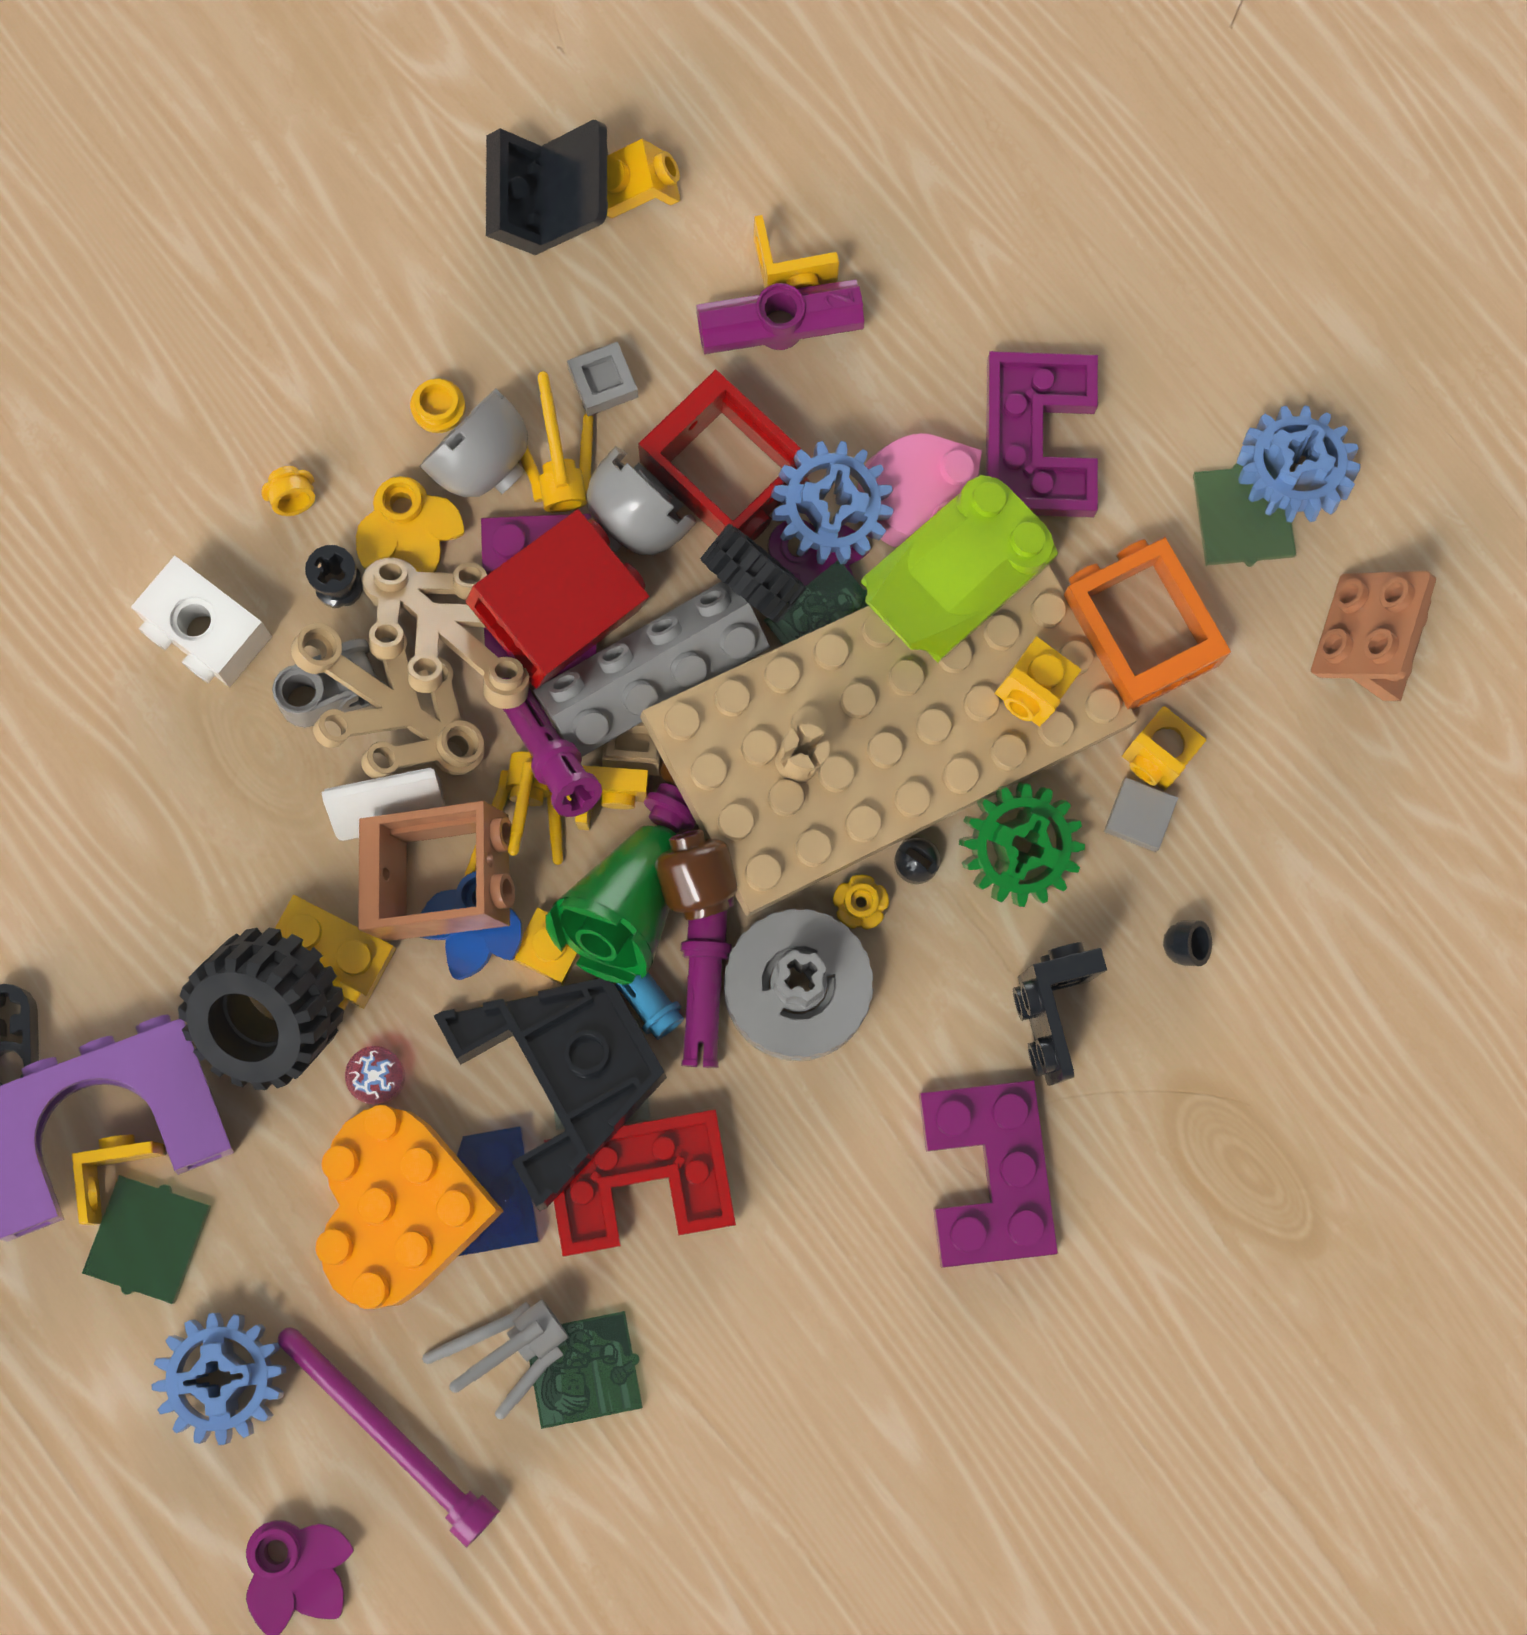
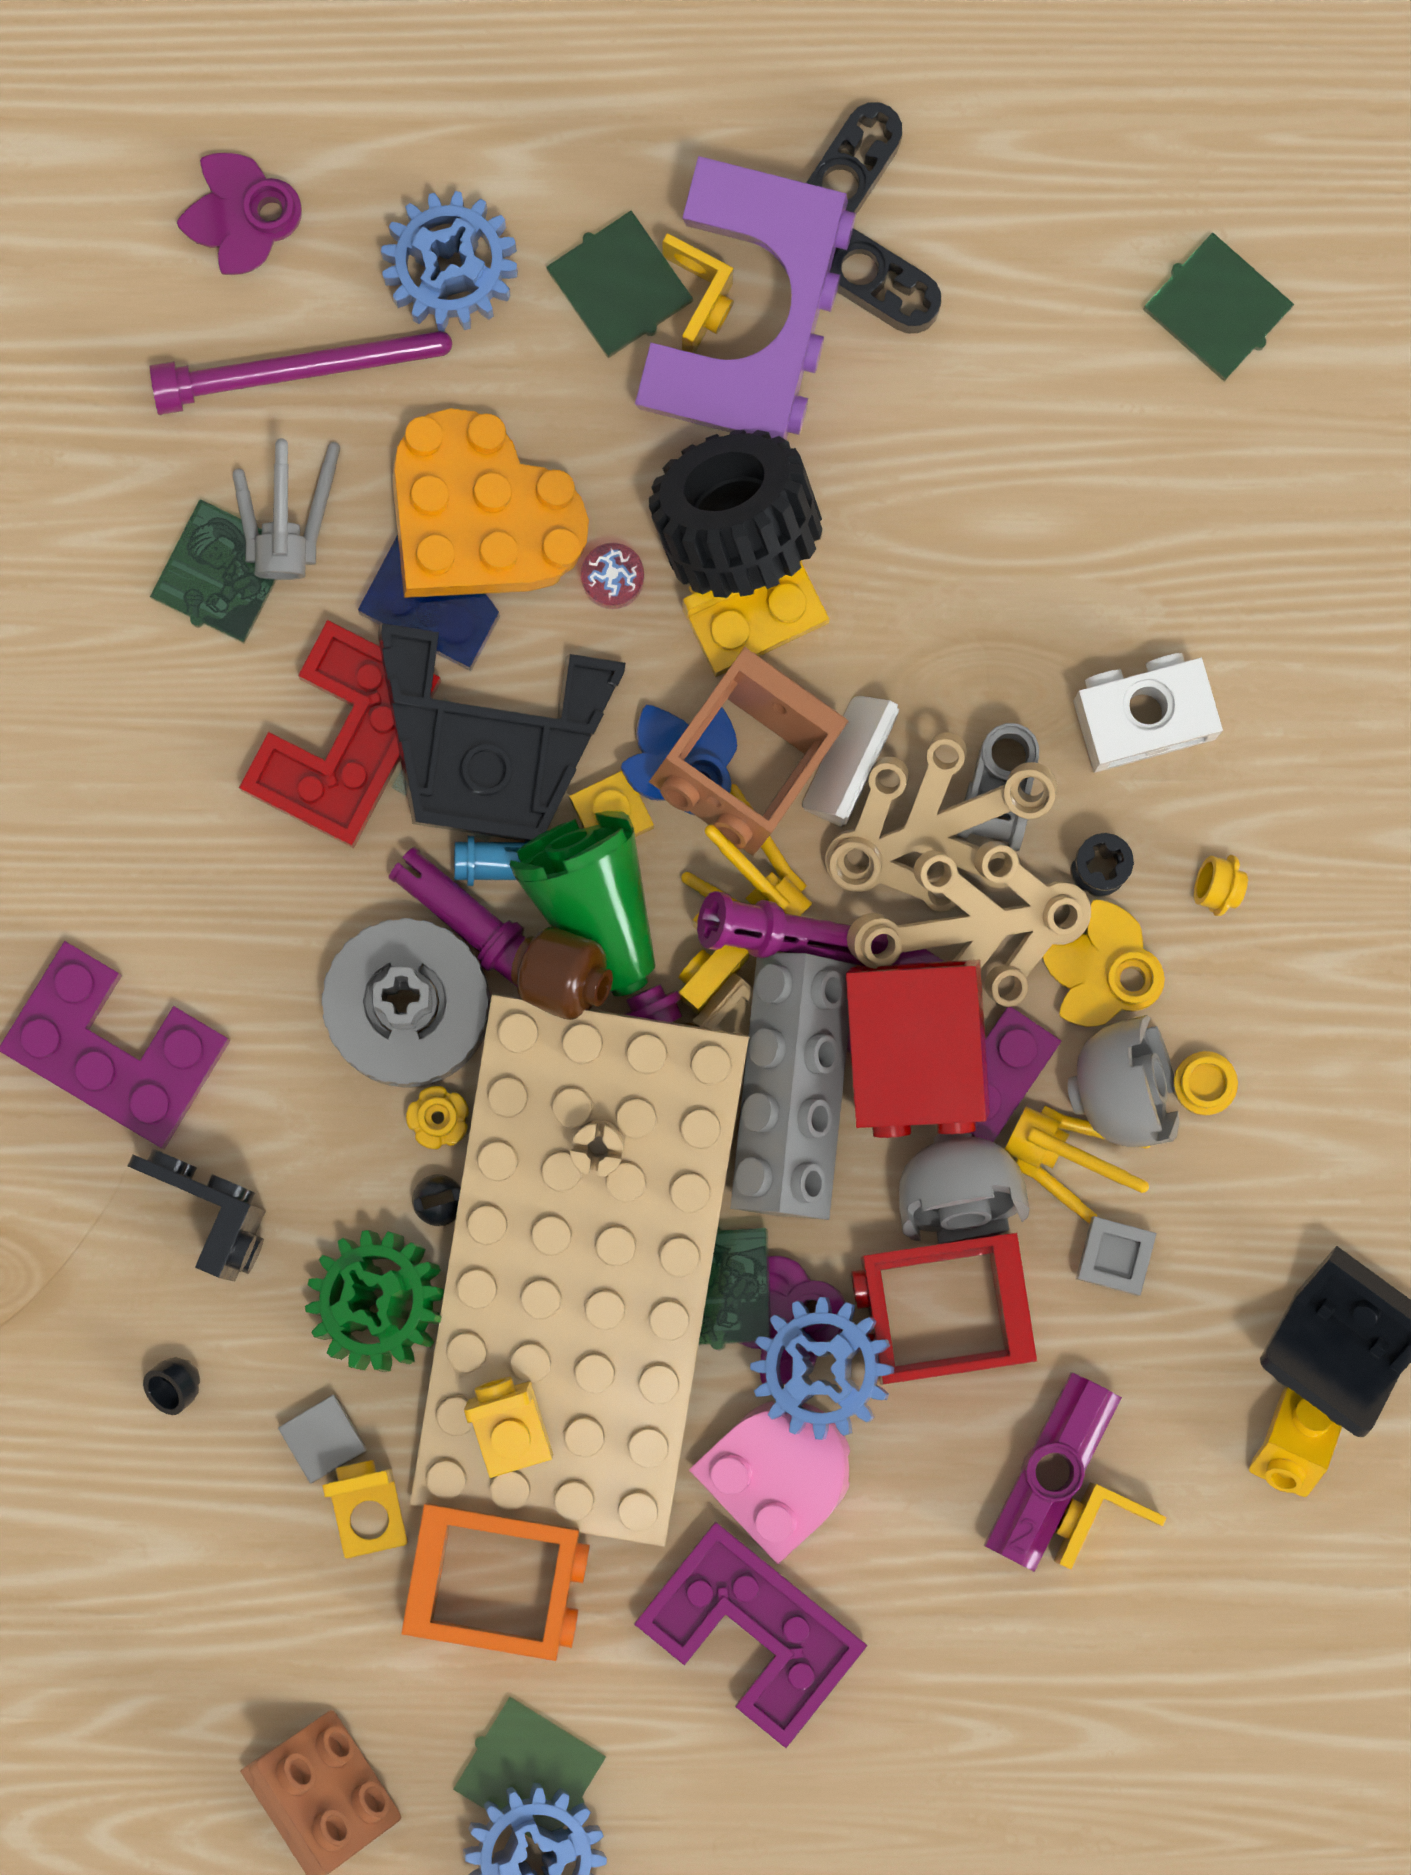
camera: 130 degrees right, 5 degrees up
(753, 573) = (807, 1240): black tyre -> none
(959, 567) = (670, 1433): lime slope -> none

